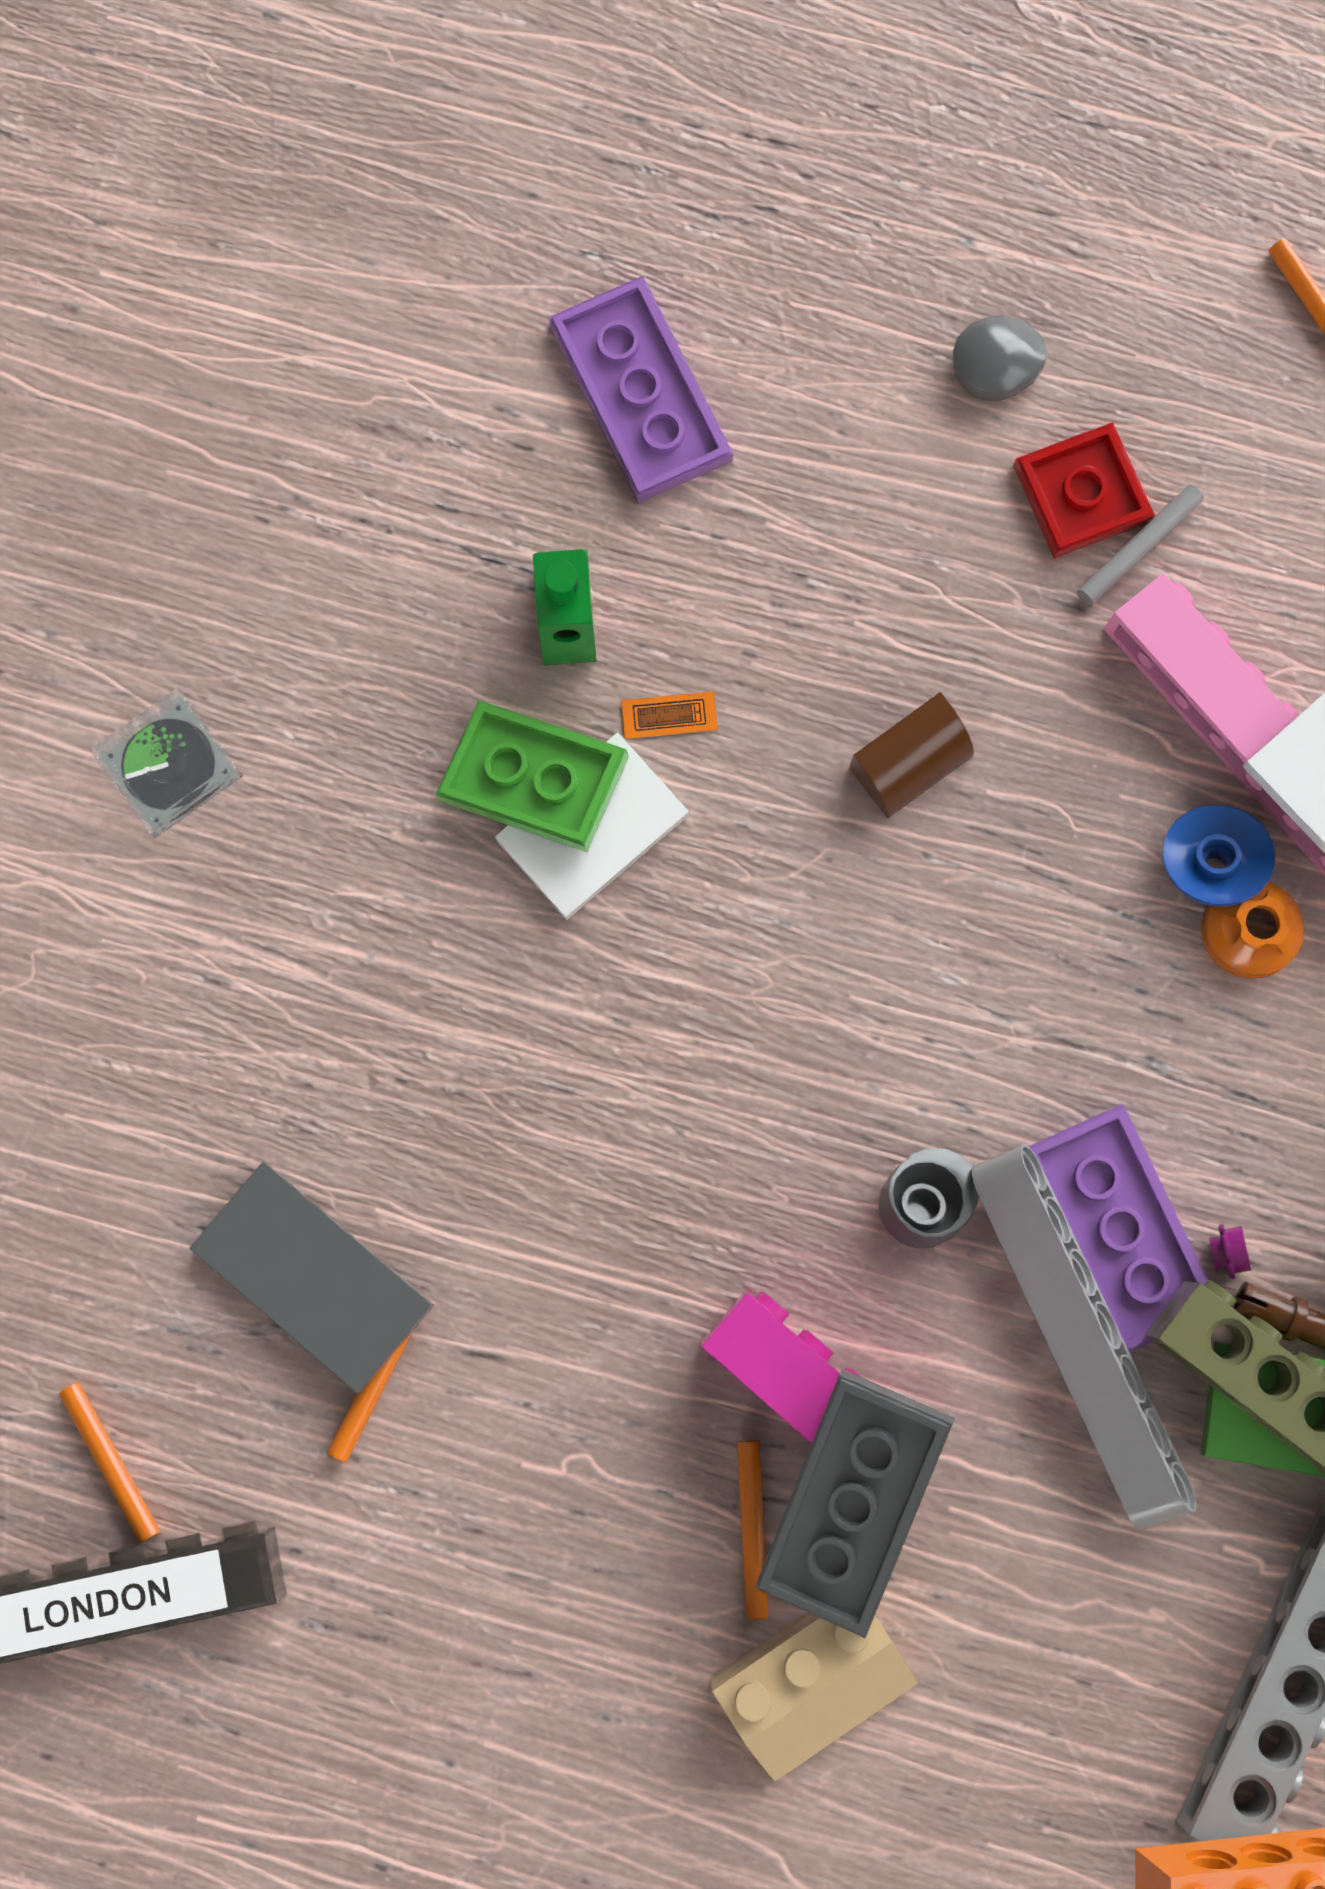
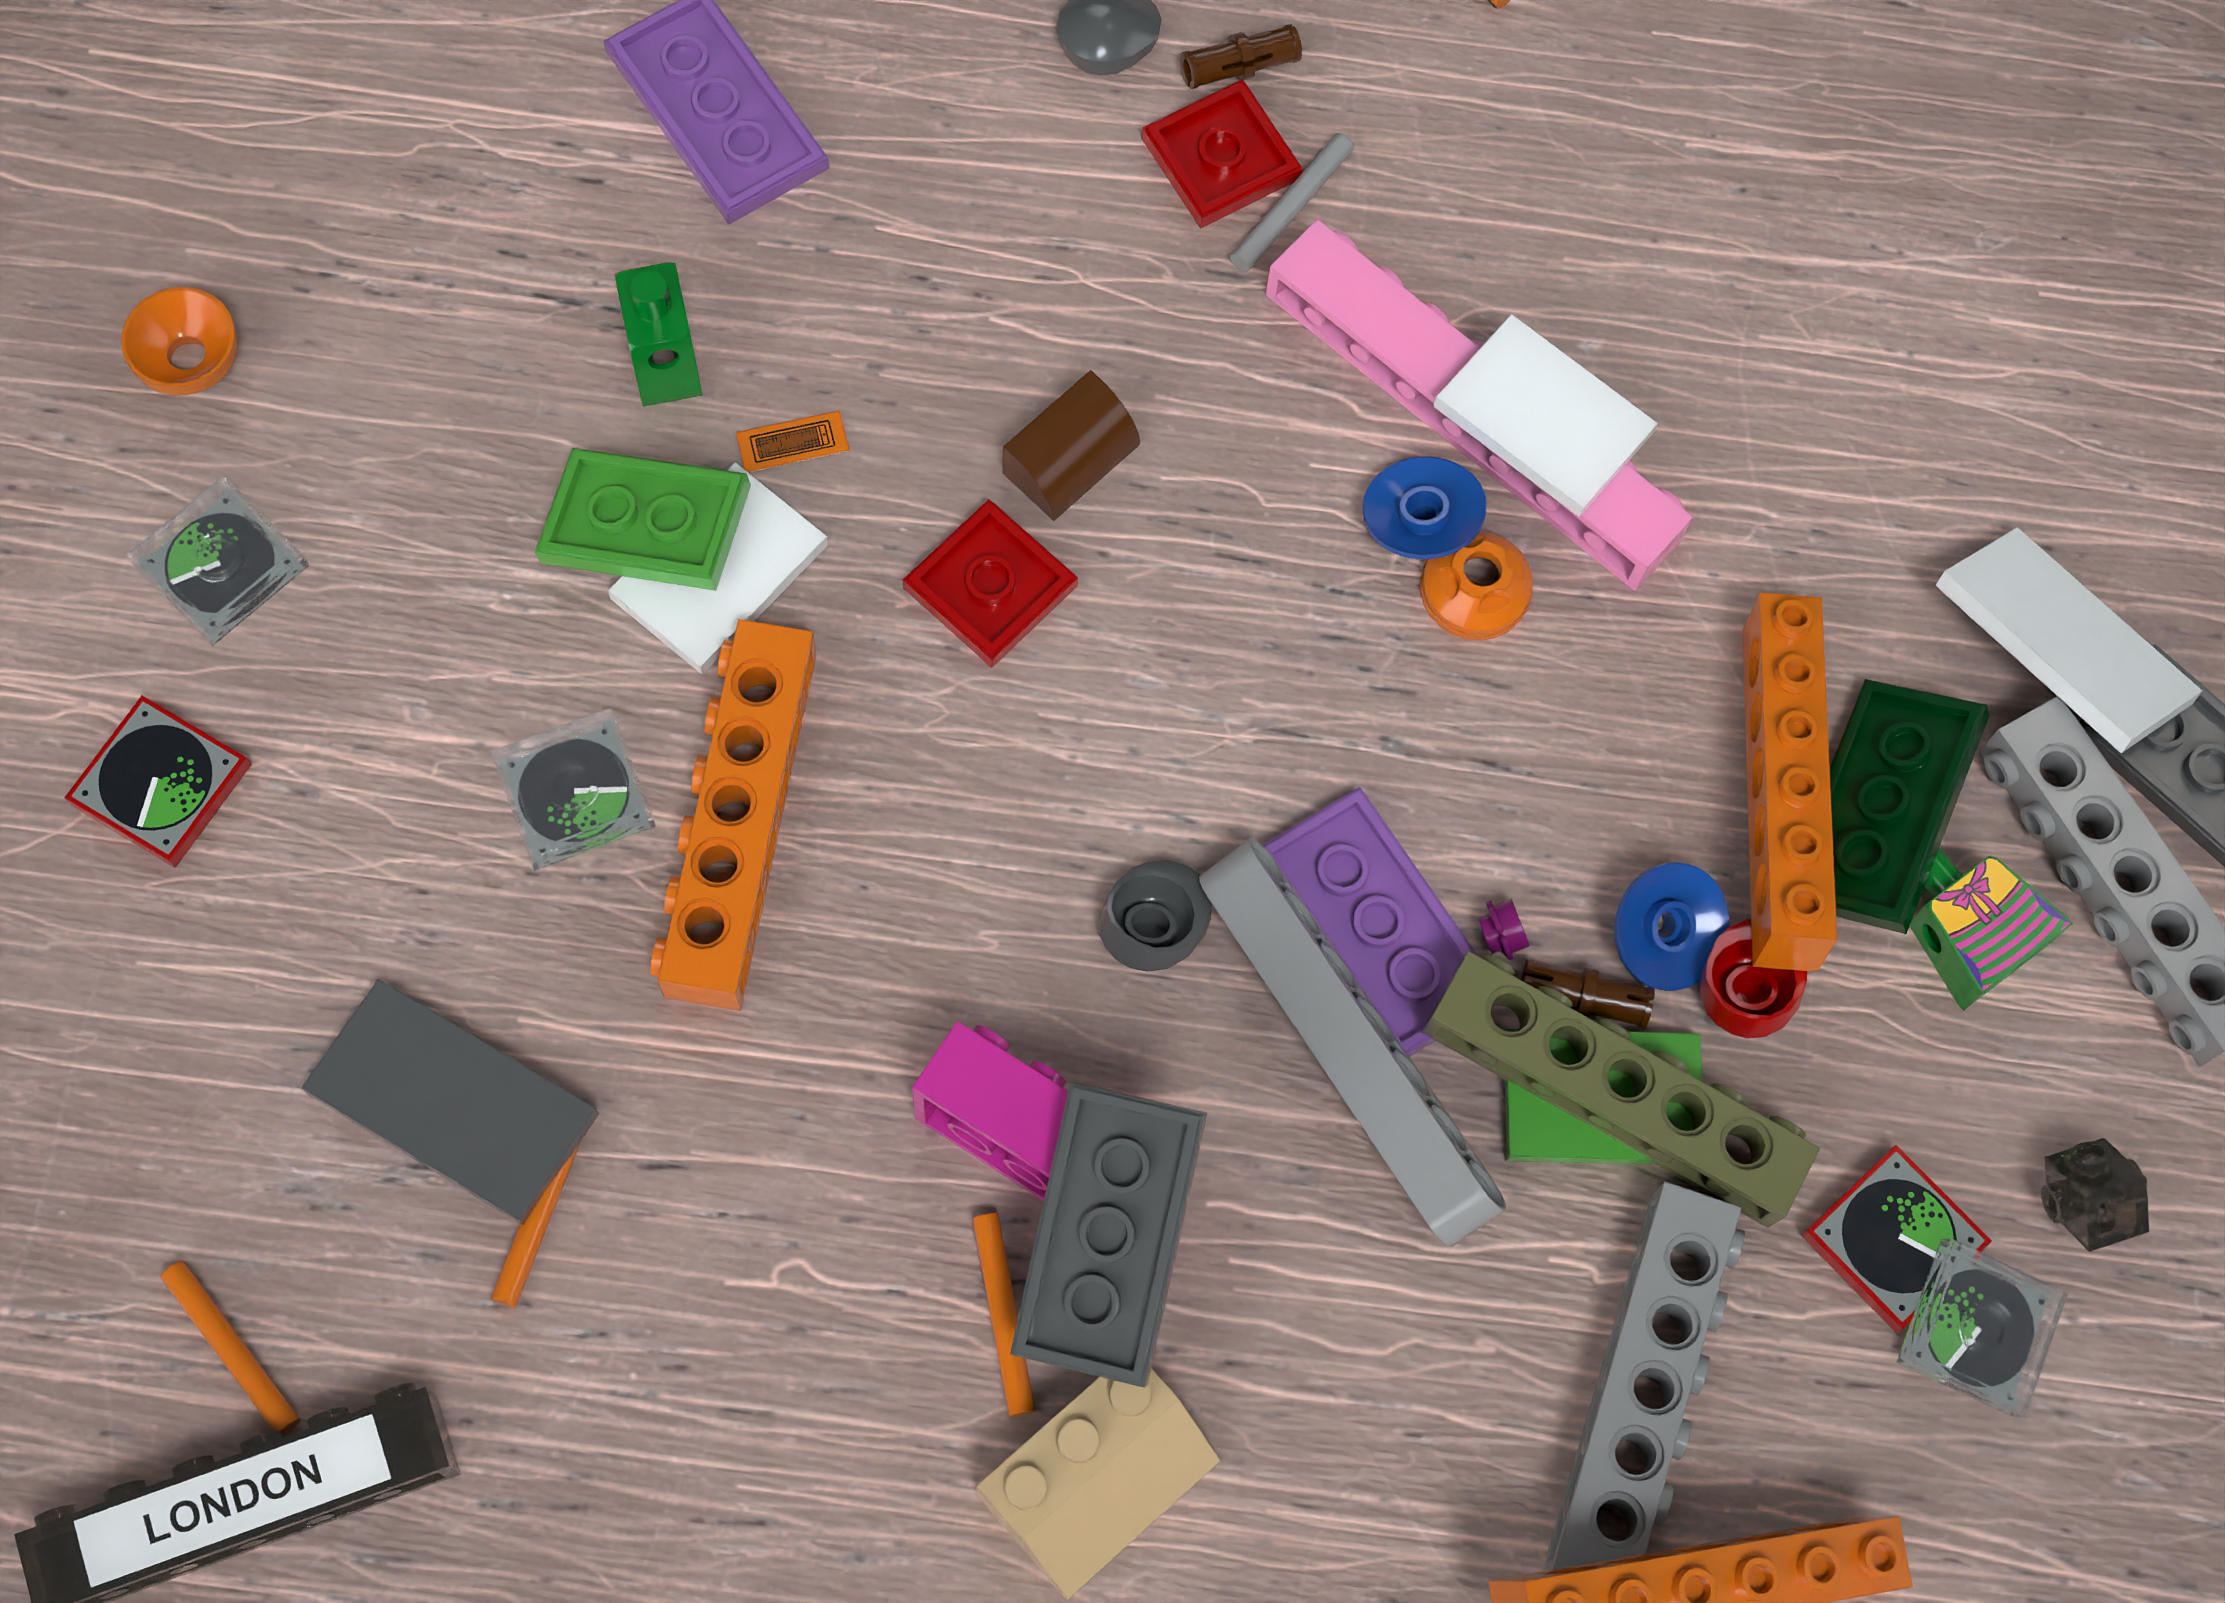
camera: 15 degrees left, 10 degrees down
(97, 957) = (158, 781): none -> tile
(139, 542) = (175, 319): none -> orange piece
(444, 1010) = (573, 789): none -> clear tile
(639, 926) = (719, 970): none -> orange brick
(825, 870) = (990, 583): none -> red tile
(1114, 400) = (1241, 56): none -> reddish brown pin

